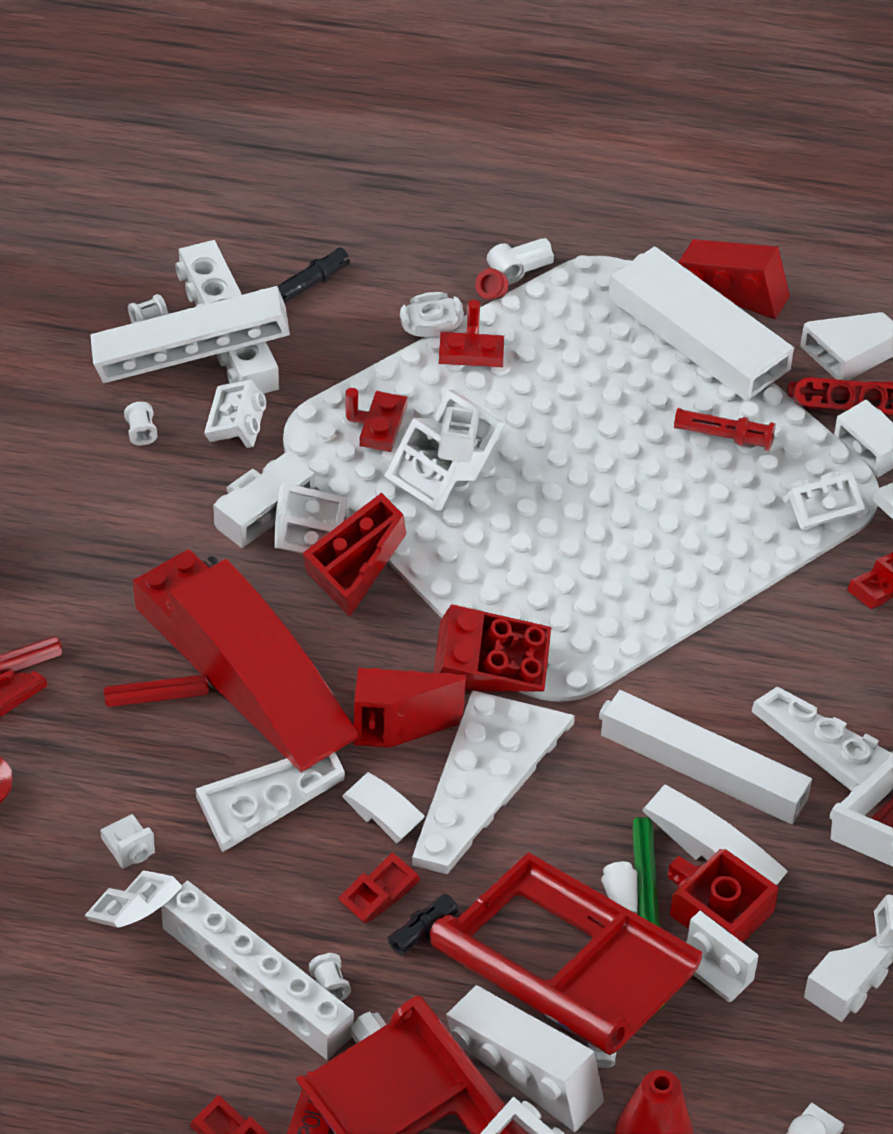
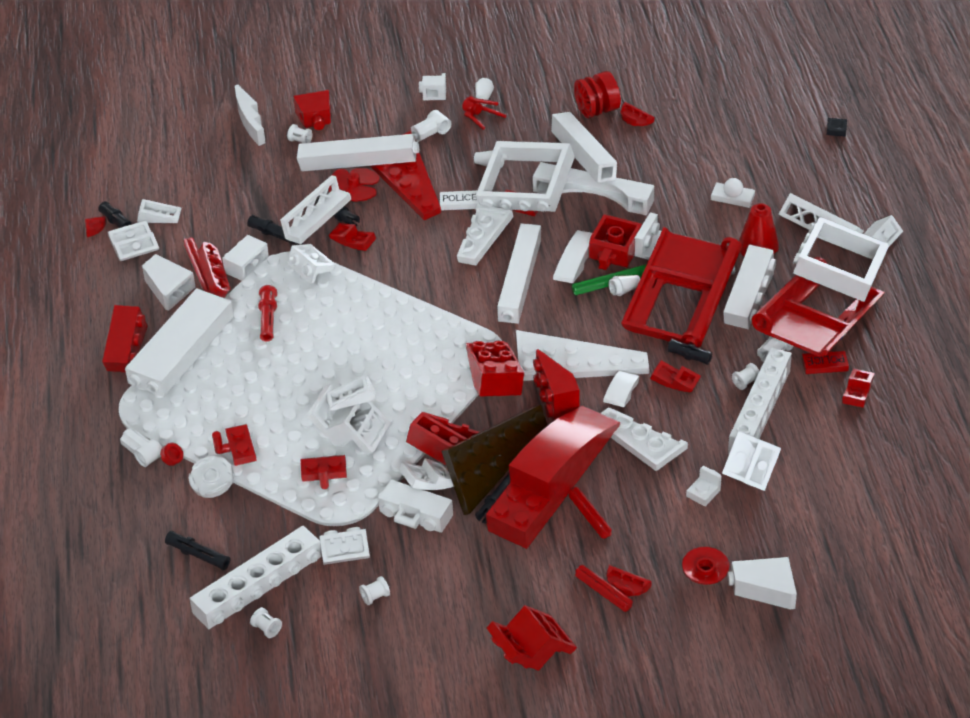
camera: 105 degrees left, 5 degrees down
(189, 334) = (295, 574): white brick -> none
(301, 585) = (485, 457): none -> dark brown wing

